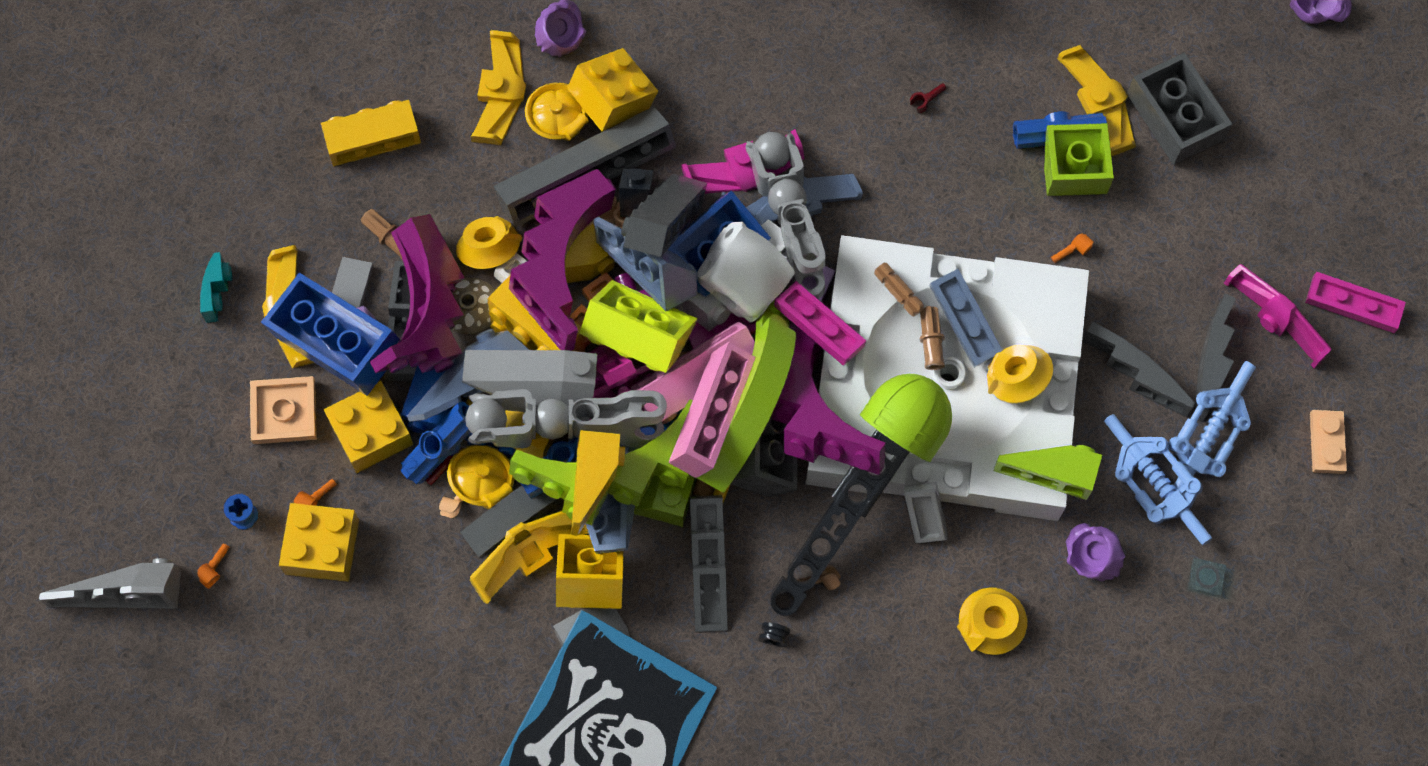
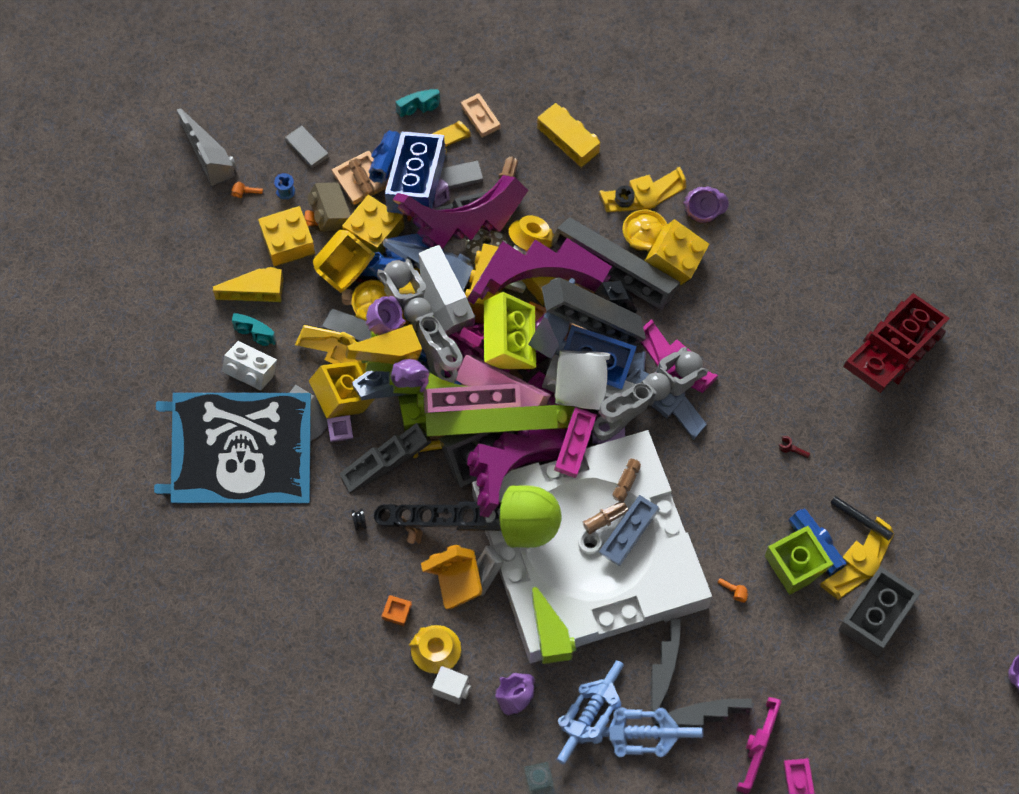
camera: 65 degrees right, 5 degrees down
(193, 457) = (307, 147): none -> light grey tile
(276, 363) = (384, 157): none -> blue piece
(277, 222) = (480, 115): none -> light nougat plate
(289, 407) = (361, 177): none -> medium nougat axle
(307, 467) = (328, 206): none -> dark tan brick
(372, 611) = (254, 286): none -> yellow slope
(404, 484) = (342, 259): none -> yellow piece
(443, 639) = (260, 332): none -> teal slope
(487, 675) = (249, 365): none -> white brick
(491, 104) = (620, 201): none -> black bush
(550, 458) = (384, 315): none -> medium lavender hair
(638, 601) = (340, 428): none -> lavender slope
(644, 463) = (410, 374): none -> medium lavender hair
(916, 550) = (456, 575): none -> light orange bracket
(920, 644) = (396, 610): none -> orange plate
(1019, 373) = (608, 580): yellow piece -> none
(1050, 624) = (451, 685): none -> white brick
(1053, 70) = (862, 518): none -> black bar

